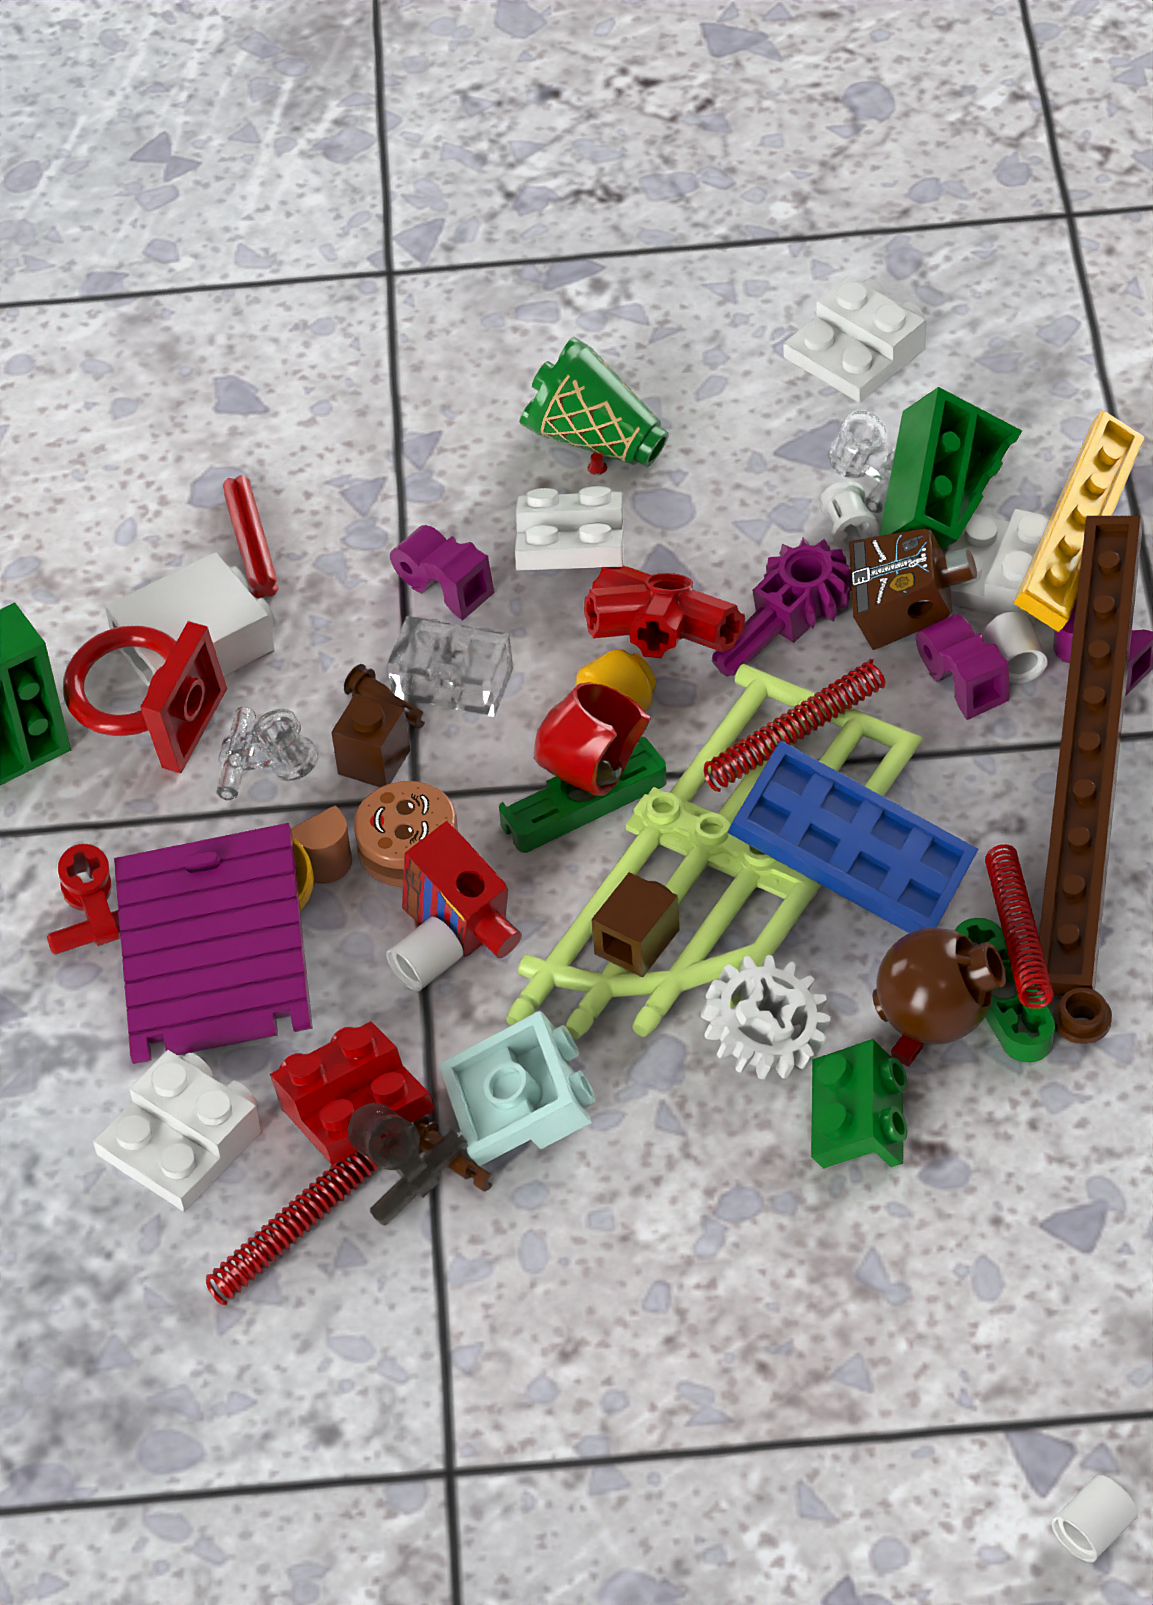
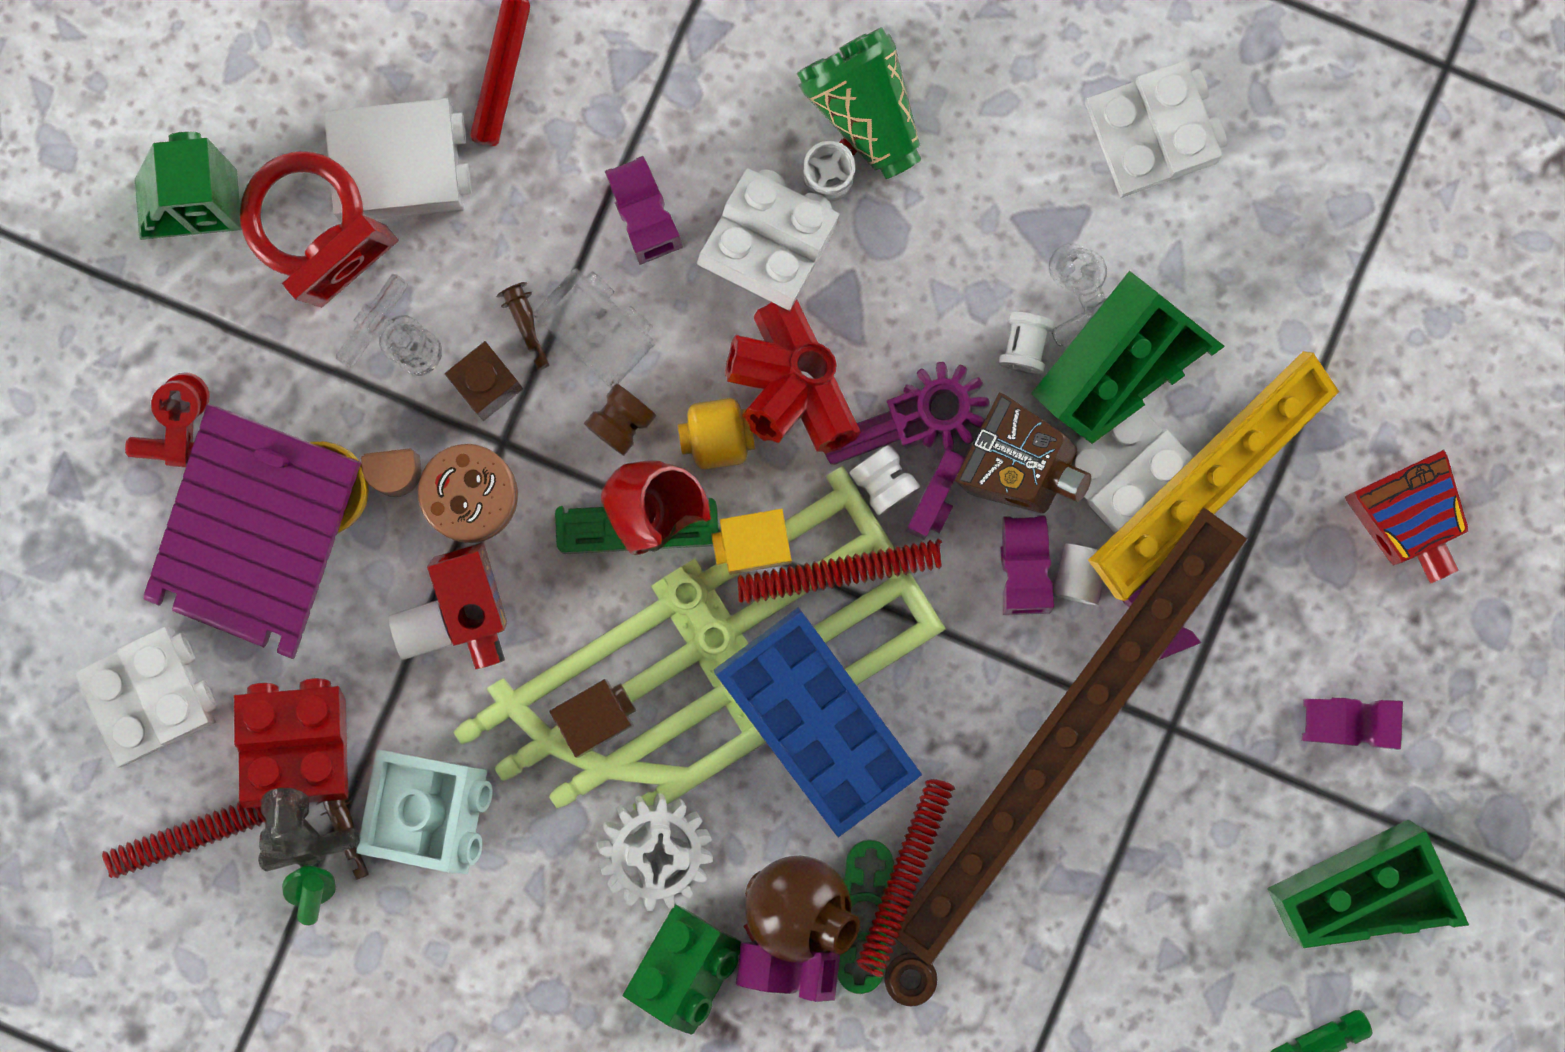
camera: 25 degrees right, 35 degrees up
(438, 1210) = (308, 889): none -> green plate
(512, 725) = (620, 419): none -> reddish brown wheel
(591, 464) = (831, 162): none -> white wheel
(700, 728) = (752, 542): none -> yellow brick
(790, 658) = (884, 480): none -> white wheel
(845, 653) = (932, 509): none -> magenta plate
(943, 1063) = (763, 972): none -> magenta leg

